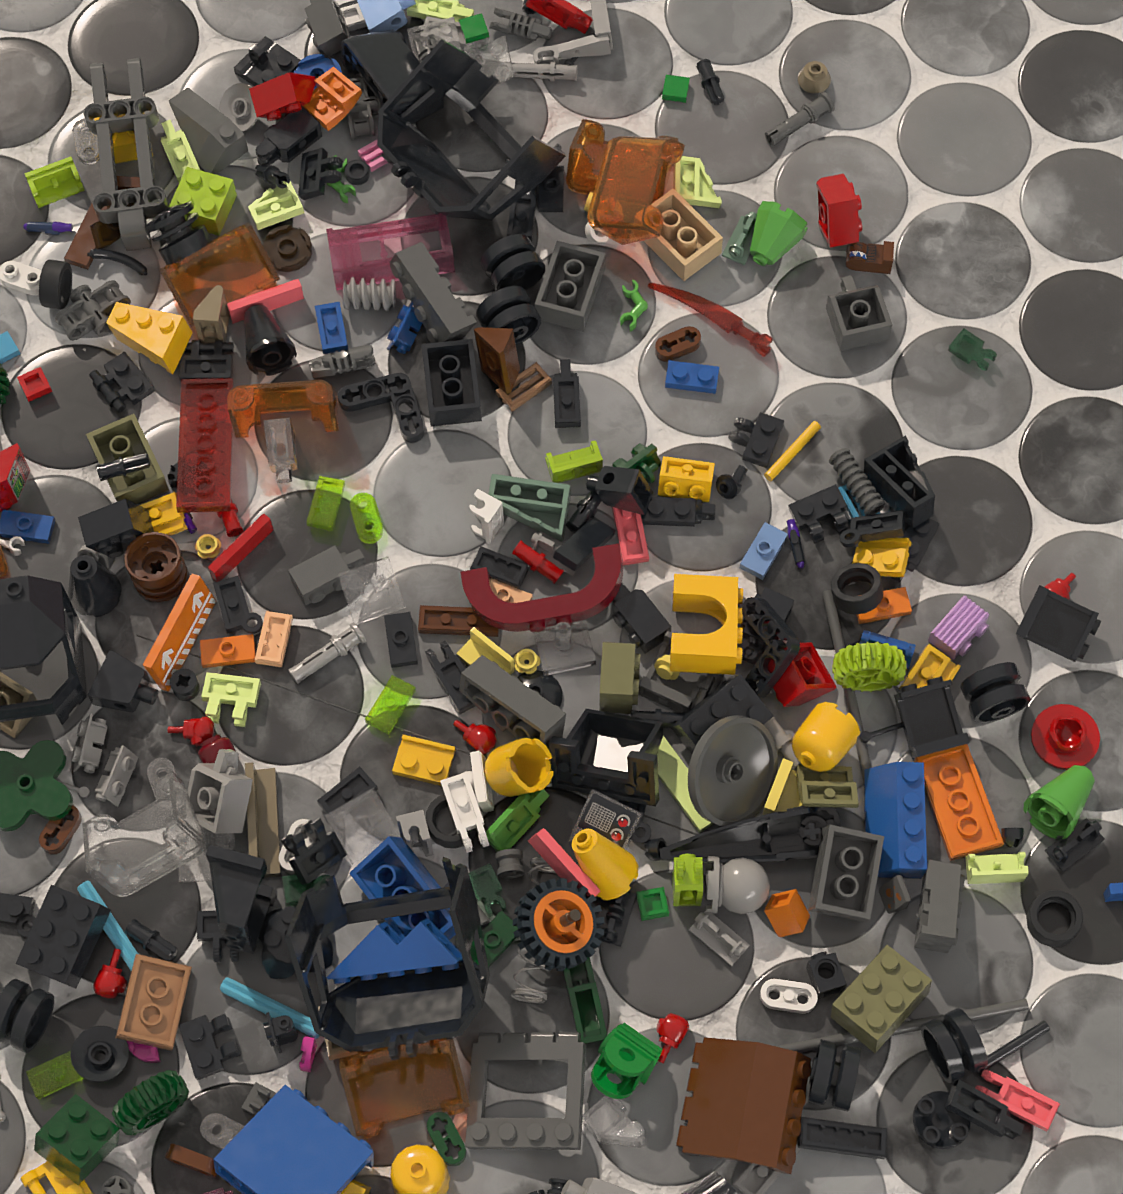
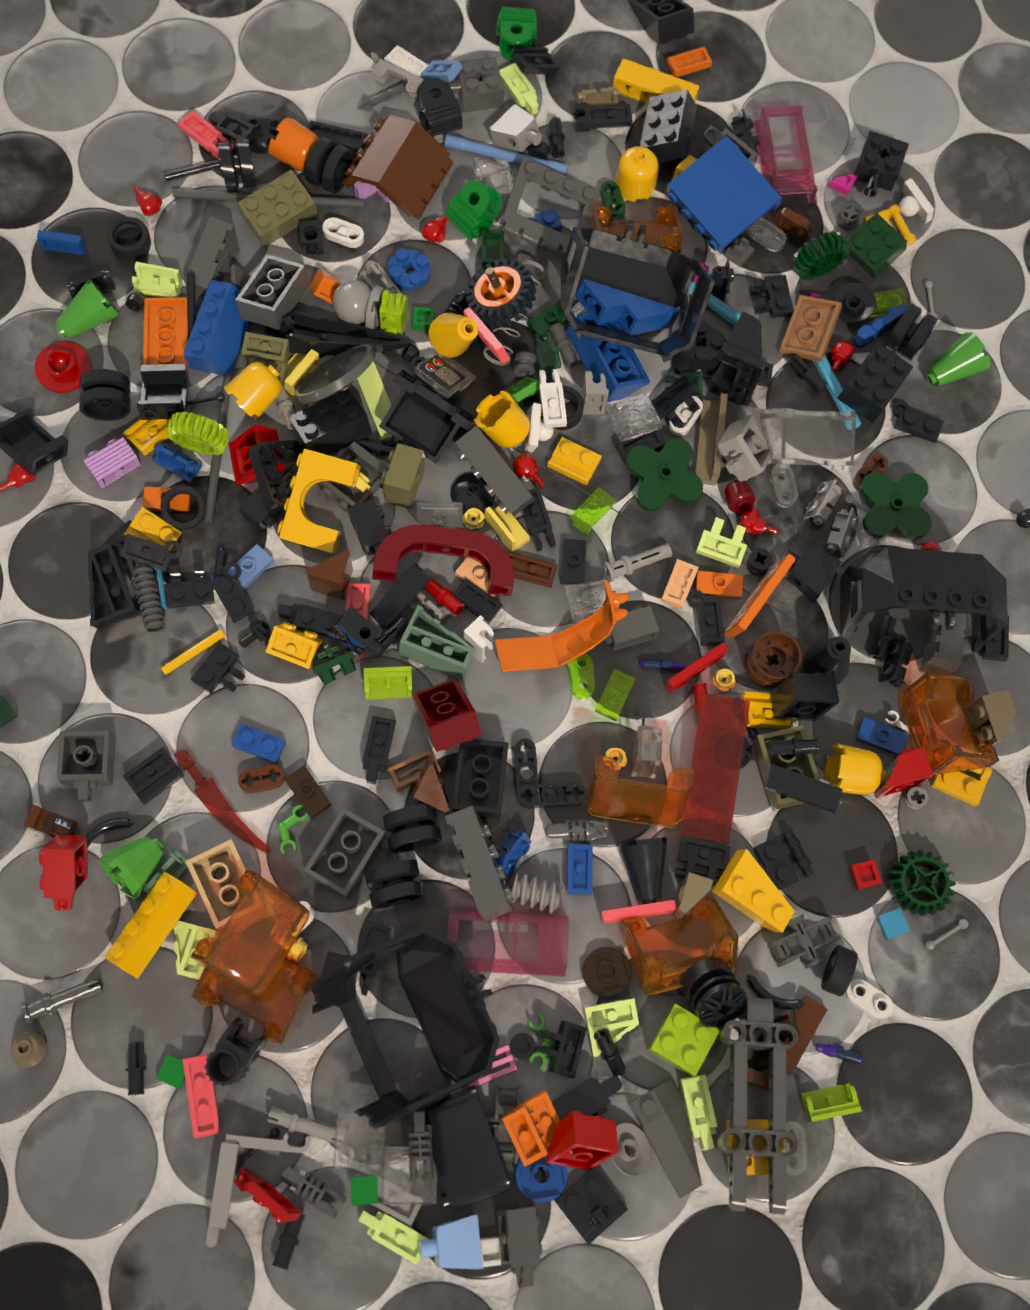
camera: 175 degrees left, 5 degrees up
(55, 472) = (854, 770): none -> yellow cylinder
(62, 1029) = (879, 326): none -> blue hinge
(108, 430) = (803, 788): none -> black tile
(277, 548) = (669, 665): none -> dark blue piece
(306, 775) = (655, 486): none -> dark green plant
(314, 434) = (619, 754): none -> plate
(400, 536) = (566, 646): none -> orange piece
(501, 424) = (446, 715): none -> dark red brick
(529, 1083) = (549, 219): none -> blue plate
(625, 84) = (240, 1051): none -> black piece
(627, 343) = (307, 791): none -> dark brown plate
(644, 73) = (200, 1097): none -> coral tile
(667, 546) = (331, 575): none -> reddish brown slope
(668, 1176) = (465, 145): none -> medium blue piece
(701, 955) = (405, 259): none -> blue plate
(738, 187) = (150, 925): none -> yellow brick
(770, 513) = (232, 594): none -> black hinge
(787, 321) = (153, 775): none -> black plate
(818, 269) = (105, 826): none -> black piece
(886, 1098) = (292, 144): none -> orange cylinder
(940, 838) = (191, 301): none -> black bar
(1053, 979) = (148, 202): none -> red piece

